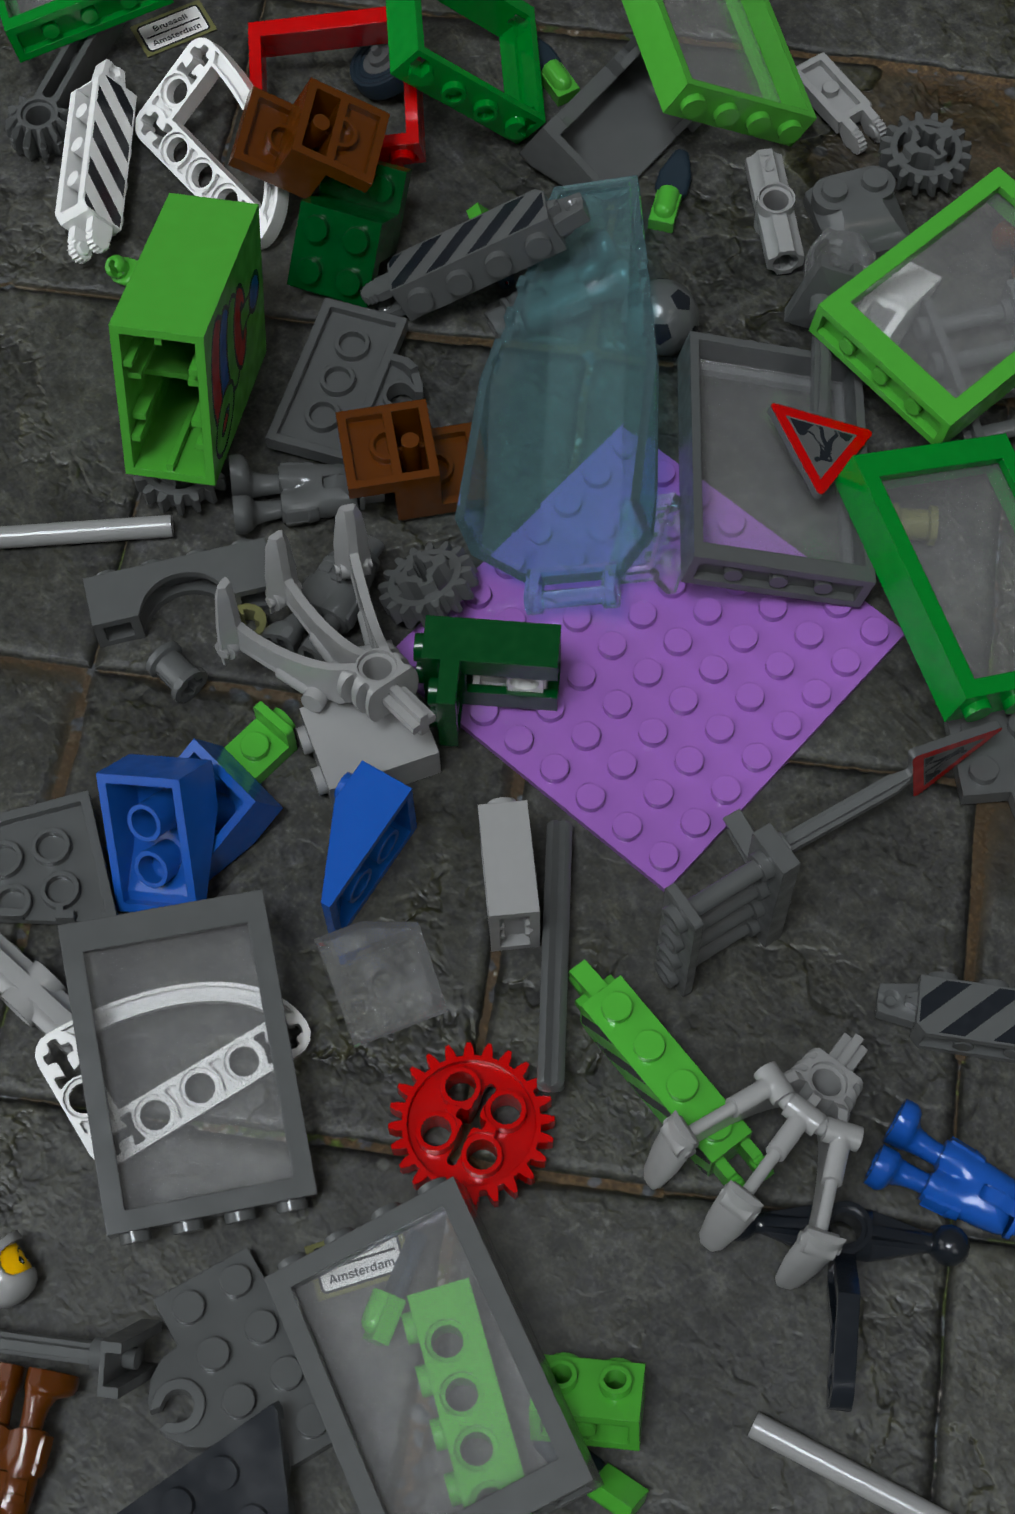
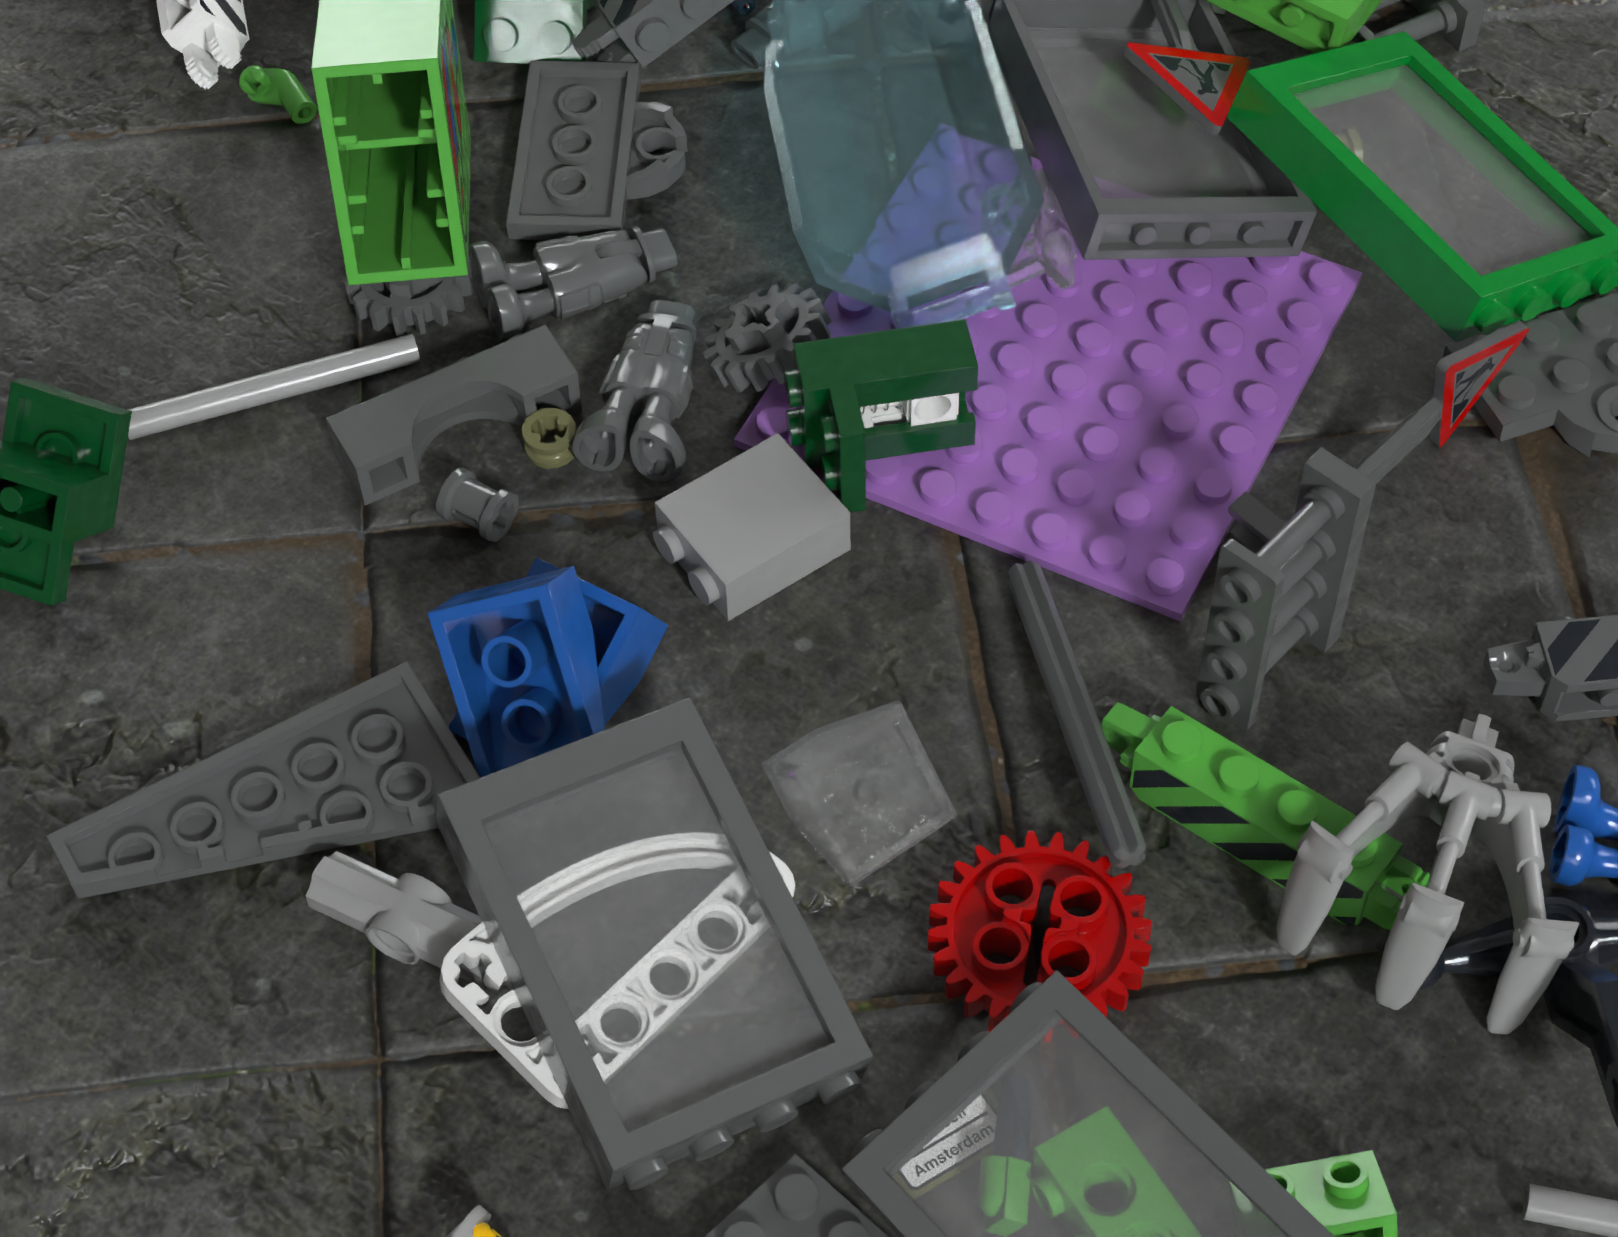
camera: 15 degrees left, 10 degrees down
(264, 742) = (620, 554): bright green bracket -> none
(367, 833) = (793, 621): blue slope -> none
(368, 676) = (688, 434): light grey piece -> none
(400, 453) = (691, 197): reddish brown bracket -> none
(509, 874) = (989, 629): light grey window -> none

